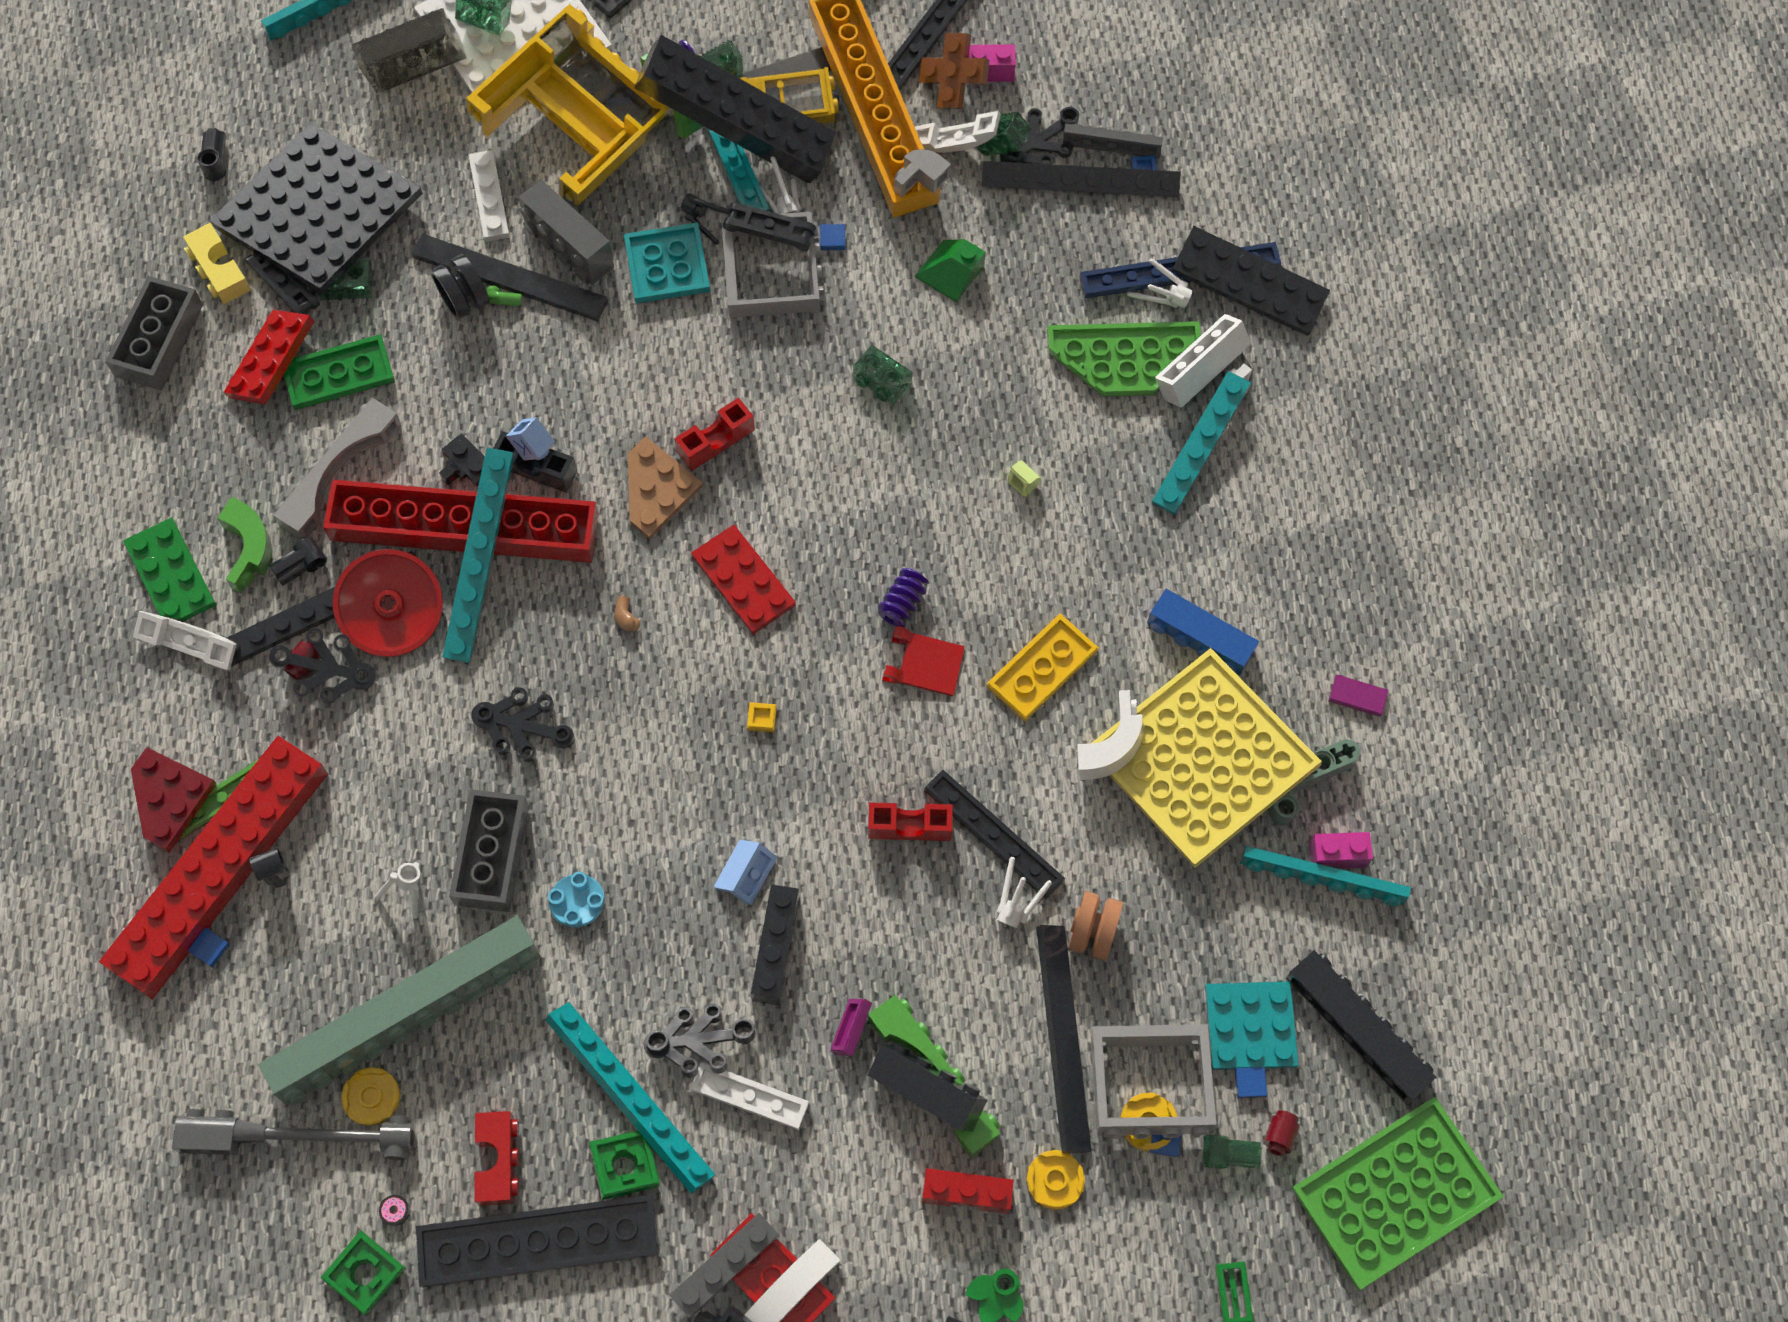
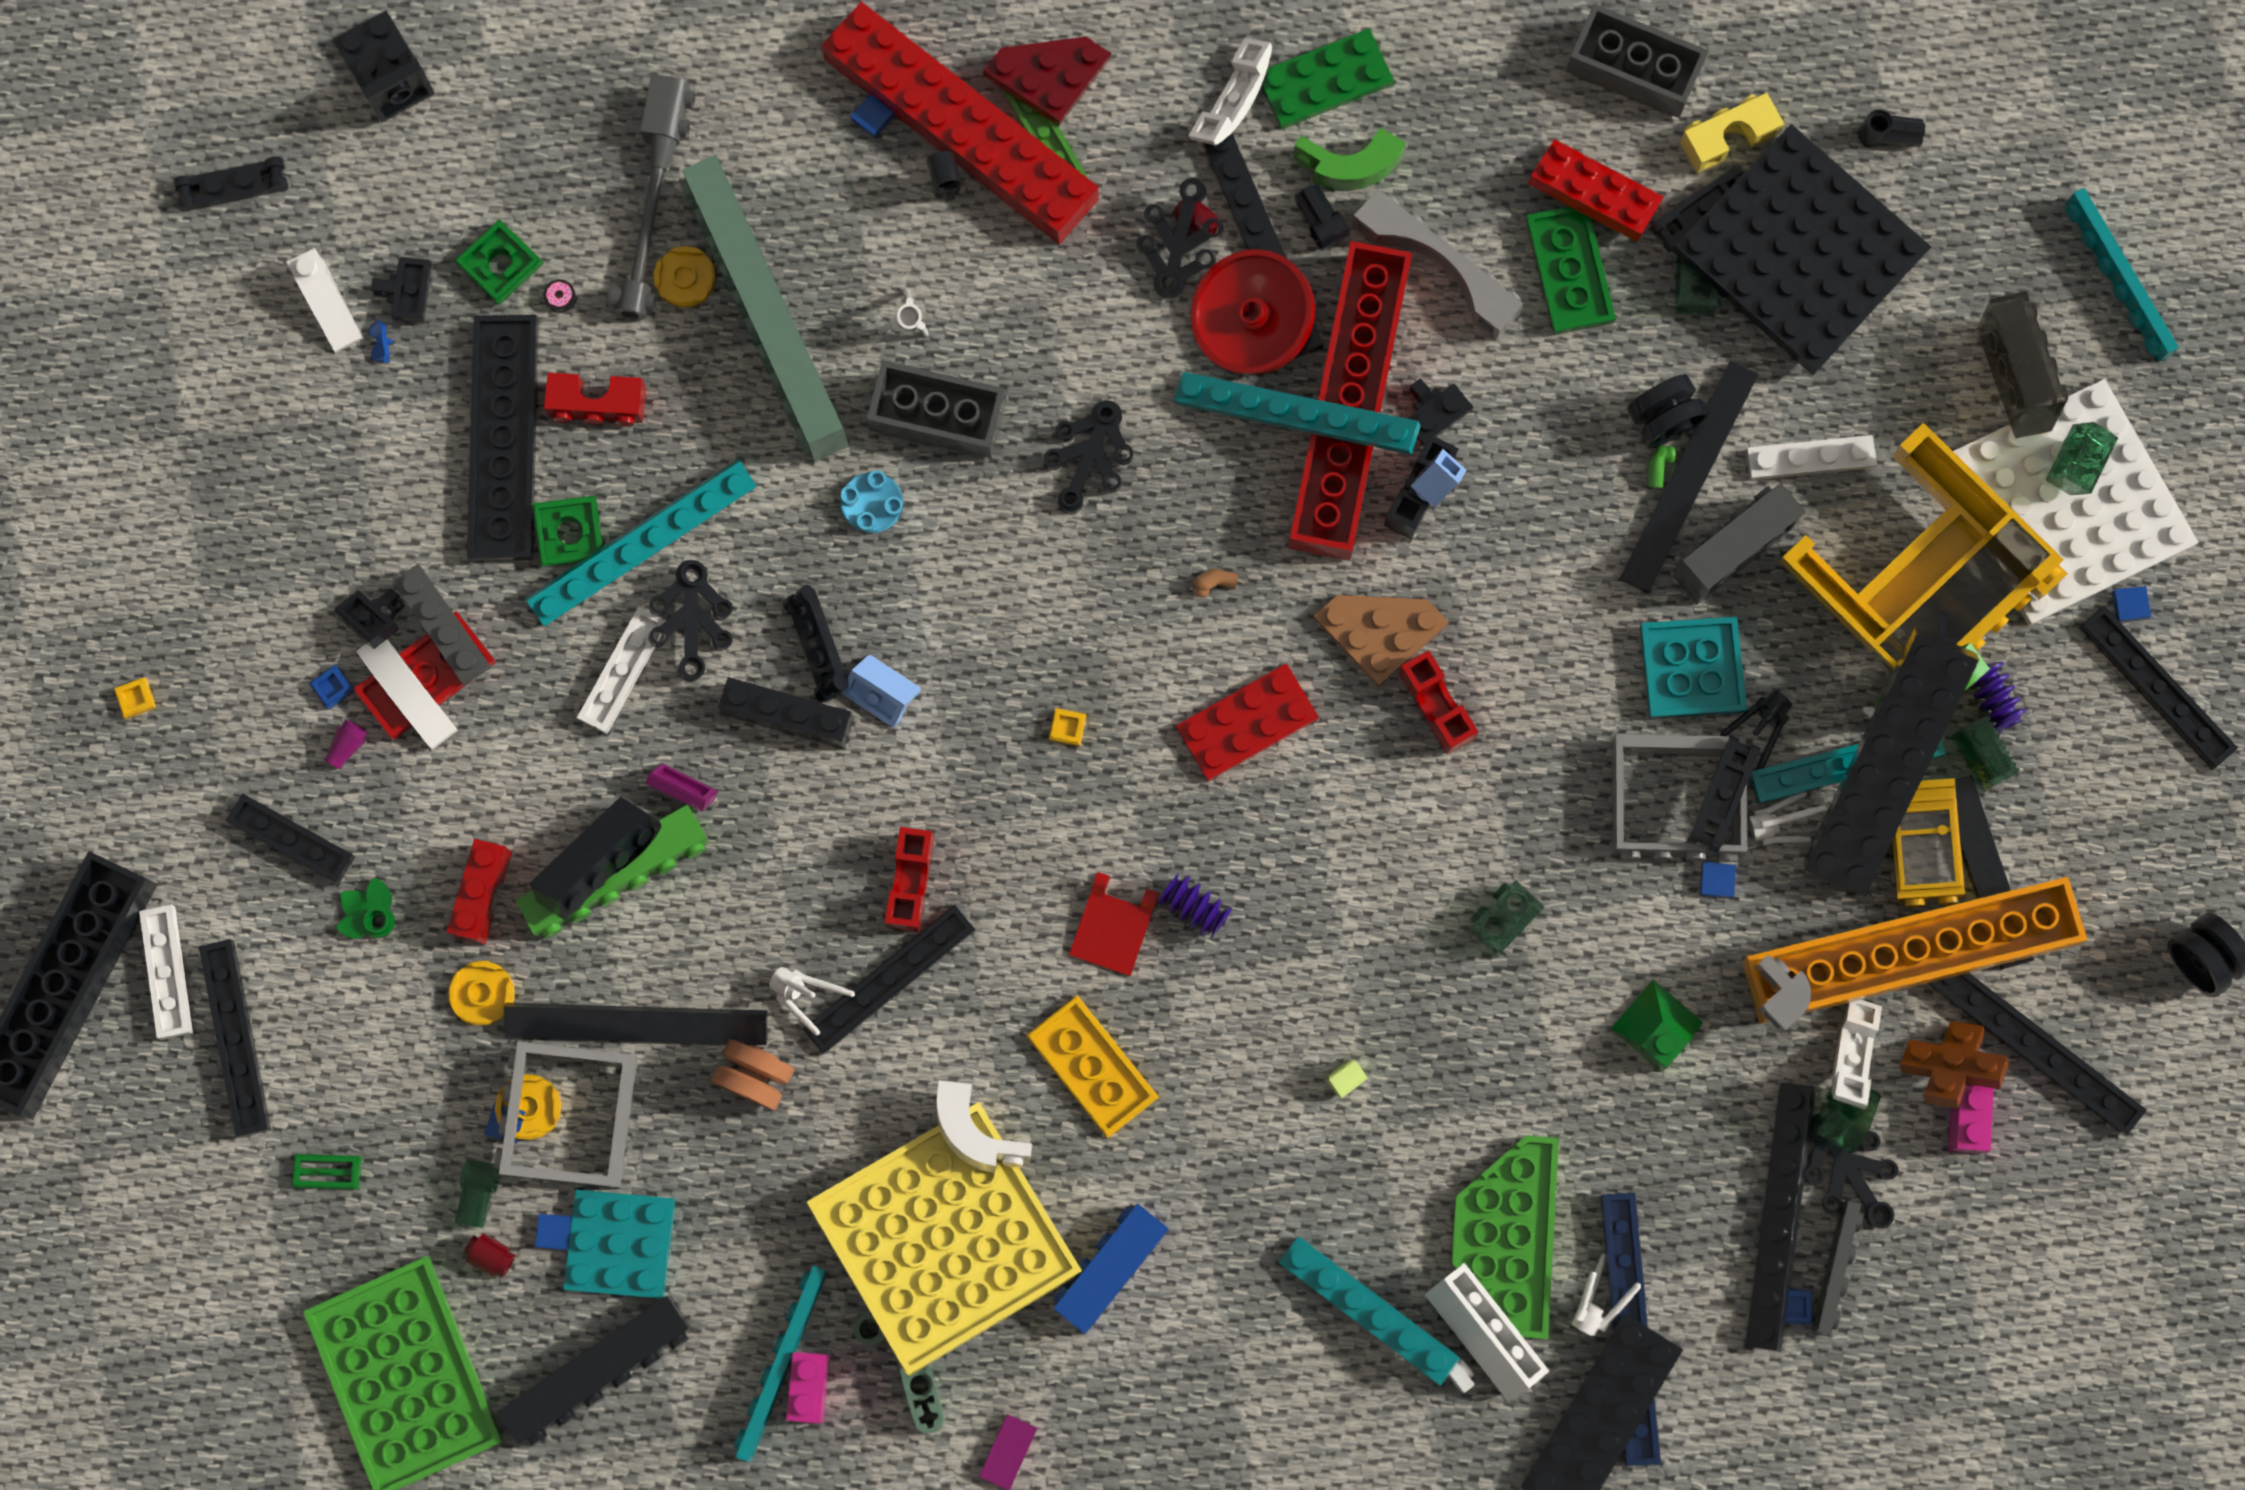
camera: 100 degrees right, 10 degrees up
(709, 928) = (817, 643): none -> black plate

